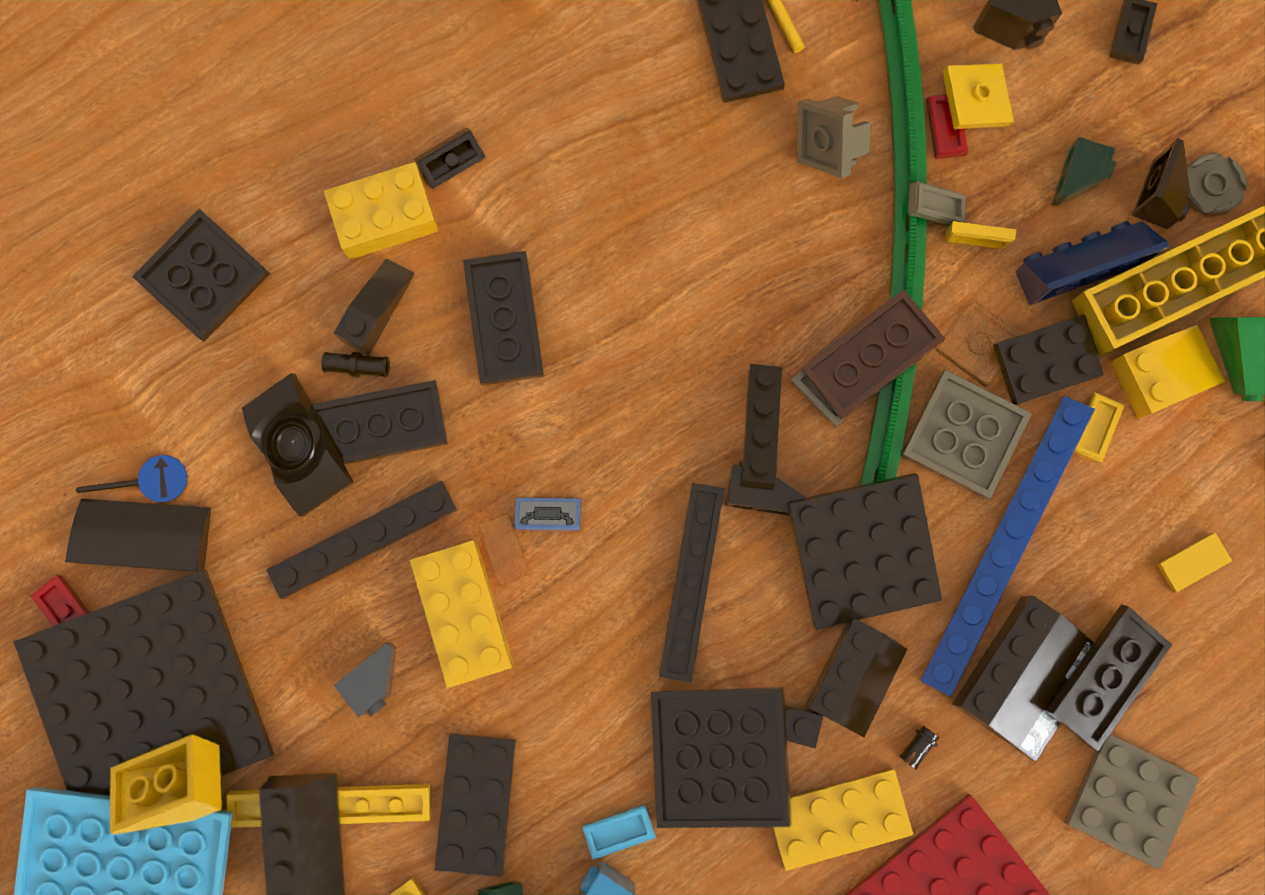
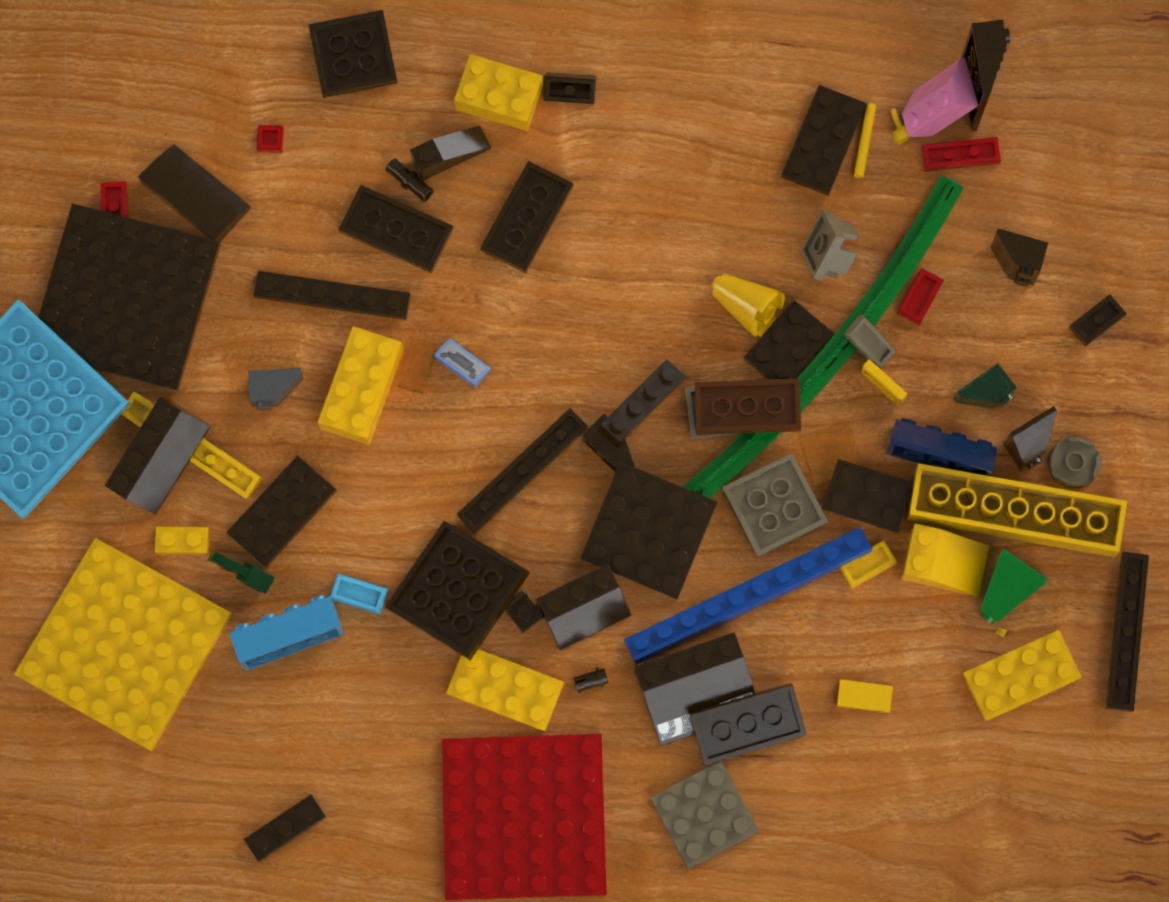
camera: 40 degrees right, 5 degrees down
(159, 479) = (232, 166): blue piece -> none
(166, 786) = (104, 356): yellow slope -> none
(179, 422) = (270, 139): none -> red tile
(296, 445) = (333, 205): dark brown slope -> none
(788, 248) = (748, 302): none -> yellow cone
(857, 264) = (788, 344): none -> dark brown plate
(978, 96) = (954, 290): yellow plate -> none

